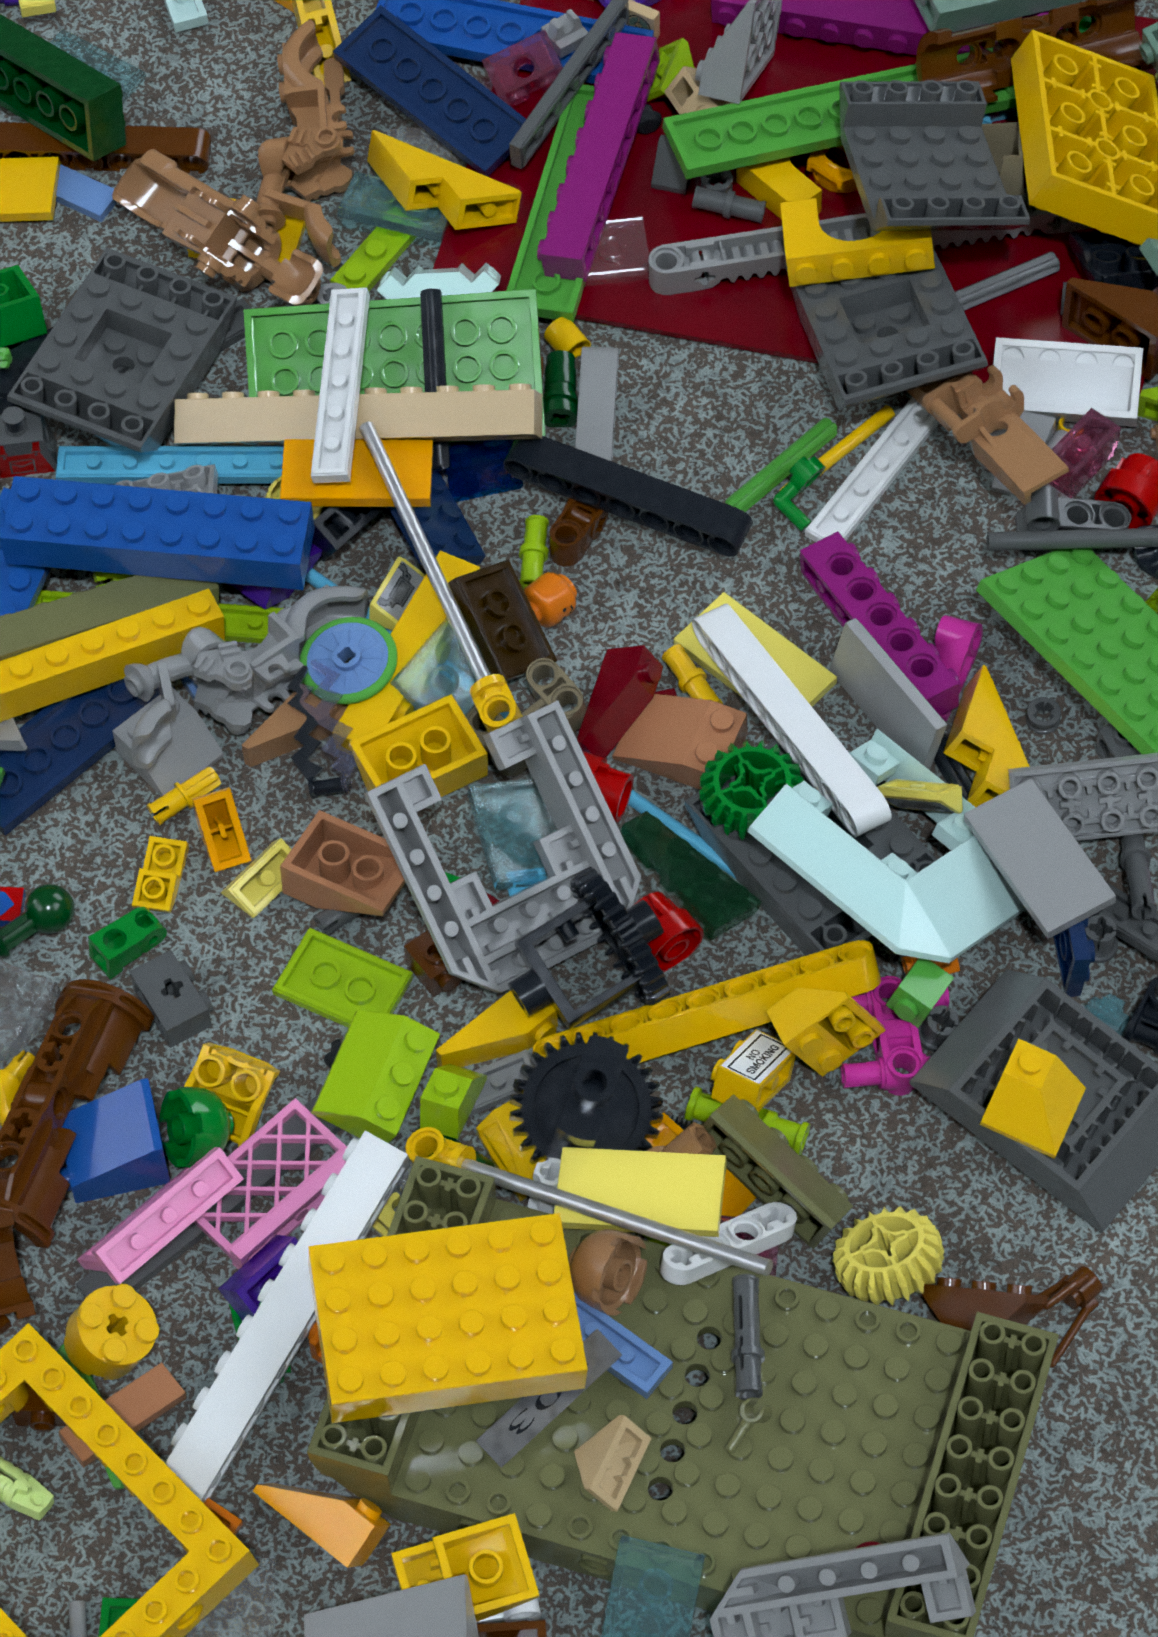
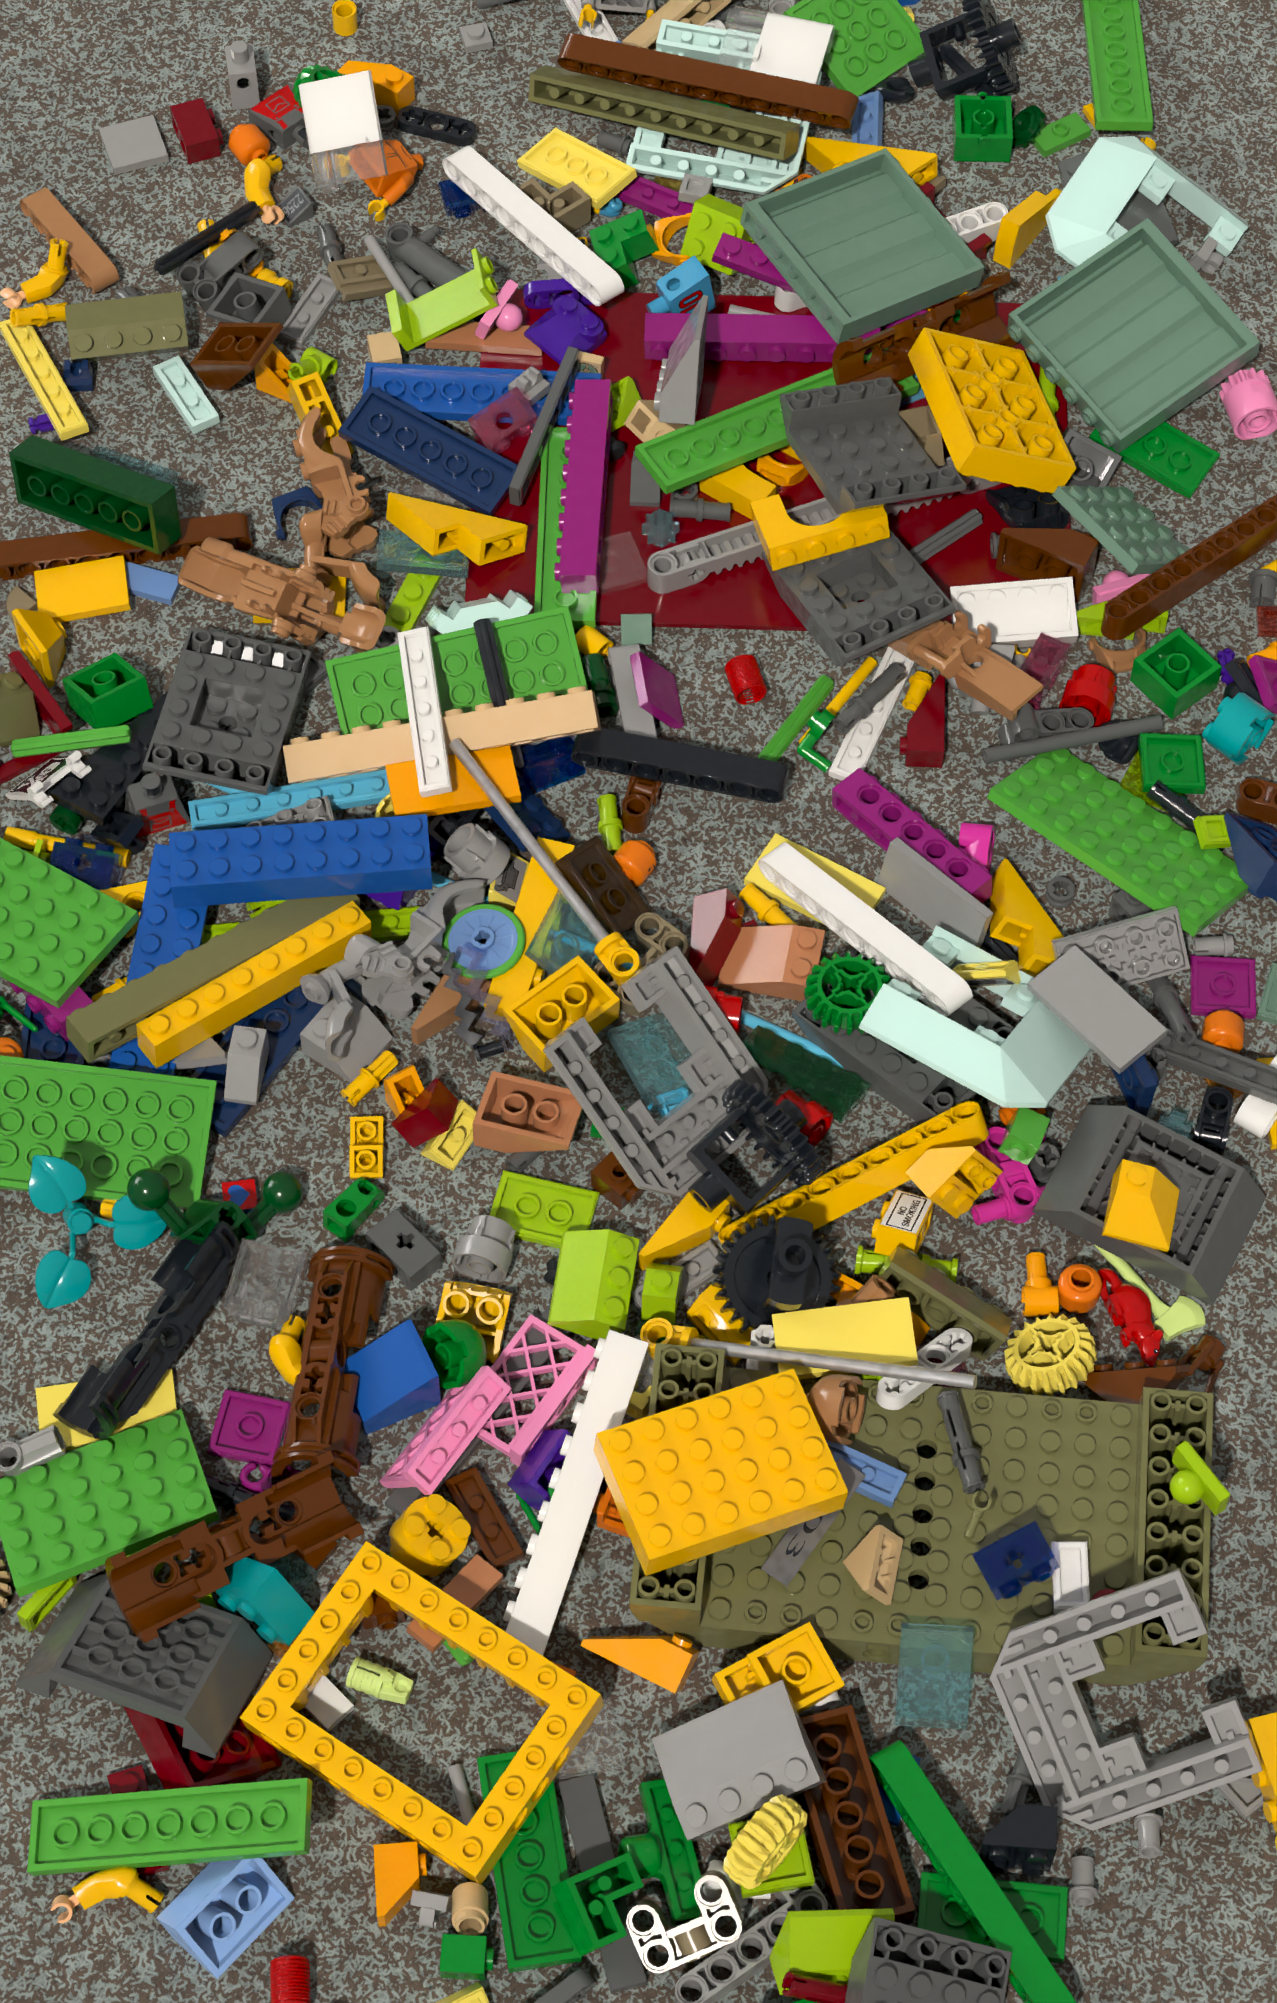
camera: 15 degrees left, 0 degrees up
(43, 755) = (246, 1064): none -> light grey slope
(183, 1324) = (485, 1519): none -> reddish brown plate
(236, 847) = (427, 1114): none -> dark red slope
(255, 125) = (299, 497): none -> dark blue helmet
(261, 1014) = (485, 1249): none -> light grey piece
(366, 558) = (476, 853): none -> light grey piece
(621, 330) = (636, 629): none -> sand green tile
(624, 404) = (656, 690): none -> magenta tile
(677, 218) = (660, 528): none -> clear light blue gear
(733, 400) = (745, 674): none -> red piece
(753, 1482) = (1023, 1544): none -> clear blue brick
(837, 1515) = (1071, 1579): none -> white tile
(860, 460) = (861, 706): none -> dark grey pin
(896, 1181) = (1038, 1292): none -> light orange pin
(930, 500) = (925, 730): none -> dark red slope
(936, 449) = (919, 685): none -> yellow pin
(943, 1183) = (1079, 1288): none -> orange head
(1002, 1221) = (1132, 1311): none -> red animal
(1006, 1434) = (1196, 1481): none -> lime tile
(1046, 1242) = (1173, 1320): none -> yellowish green piece

